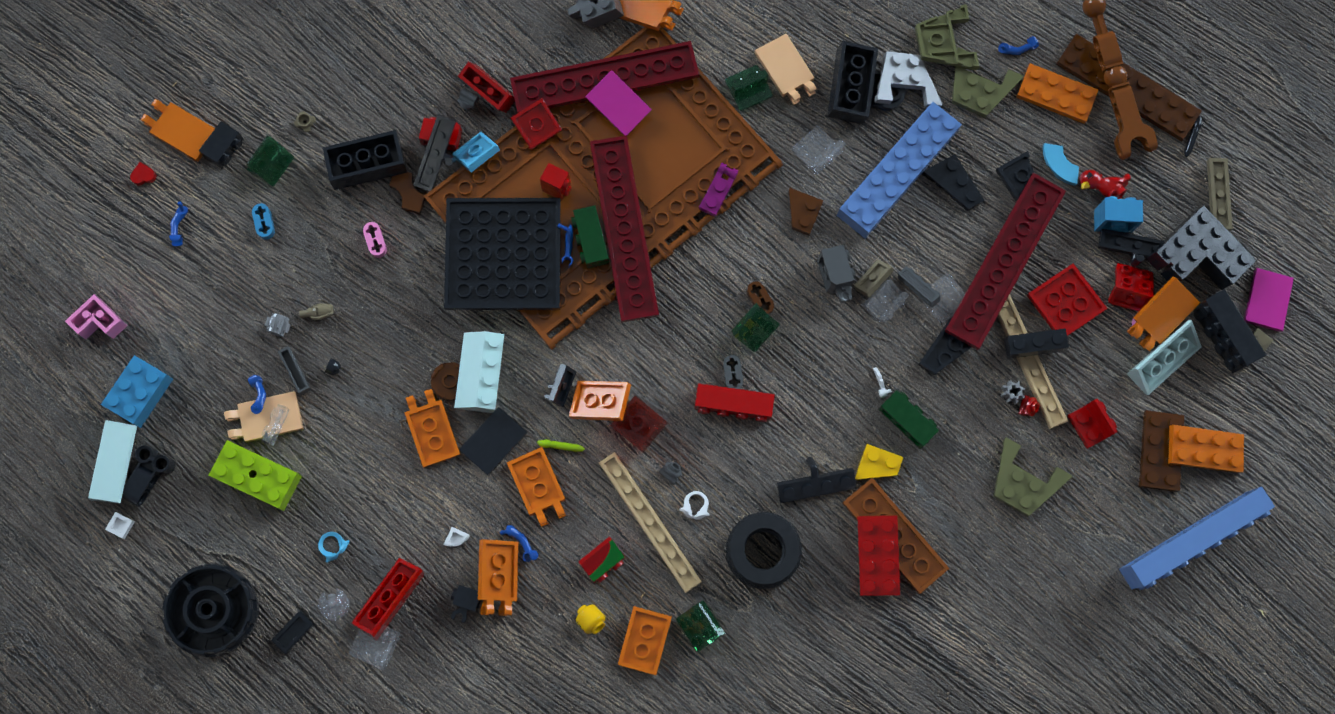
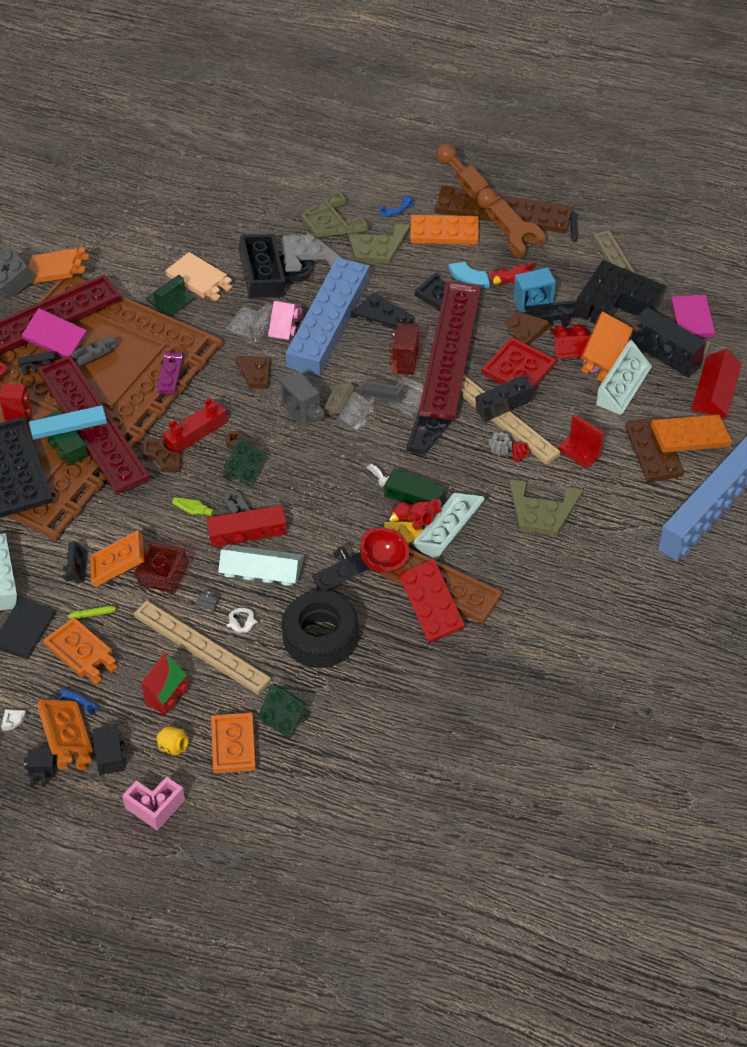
camera: 15 degrees left, 25 degrees down
(531, 607) = (108, 749): none -> black brick
(552, 686) = (156, 805): none -> bright pink brick
(568, 243) = (44, 452): blue piece -> none
(598, 130) = (31, 360): none -> black plate
(598, 227) = (67, 422): none -> medium azure tile
(660, 135) = (94, 350): none -> dark grey hinge
(684, 291) = (155, 450): none -> reddish brown tile
(691, 356) = (192, 506): none -> lime piece
(723, 263) = (195, 427): none -> red brick
(734, 450) = (260, 563): none -> light aqua slope
(853, 491) = (384, 550): none -> red cylinder
(855, 157) = (284, 318): none -> bright pink brick
(902, 453) = (418, 513): none -> red animal
(926, 472) = (447, 524): none -> light aqua slope
(959, 244) = (404, 348): none -> clear red brick
(1092, 256) = (526, 327): none -> reddish brown wing
(1257, 395) = (717, 384): none -> red slope

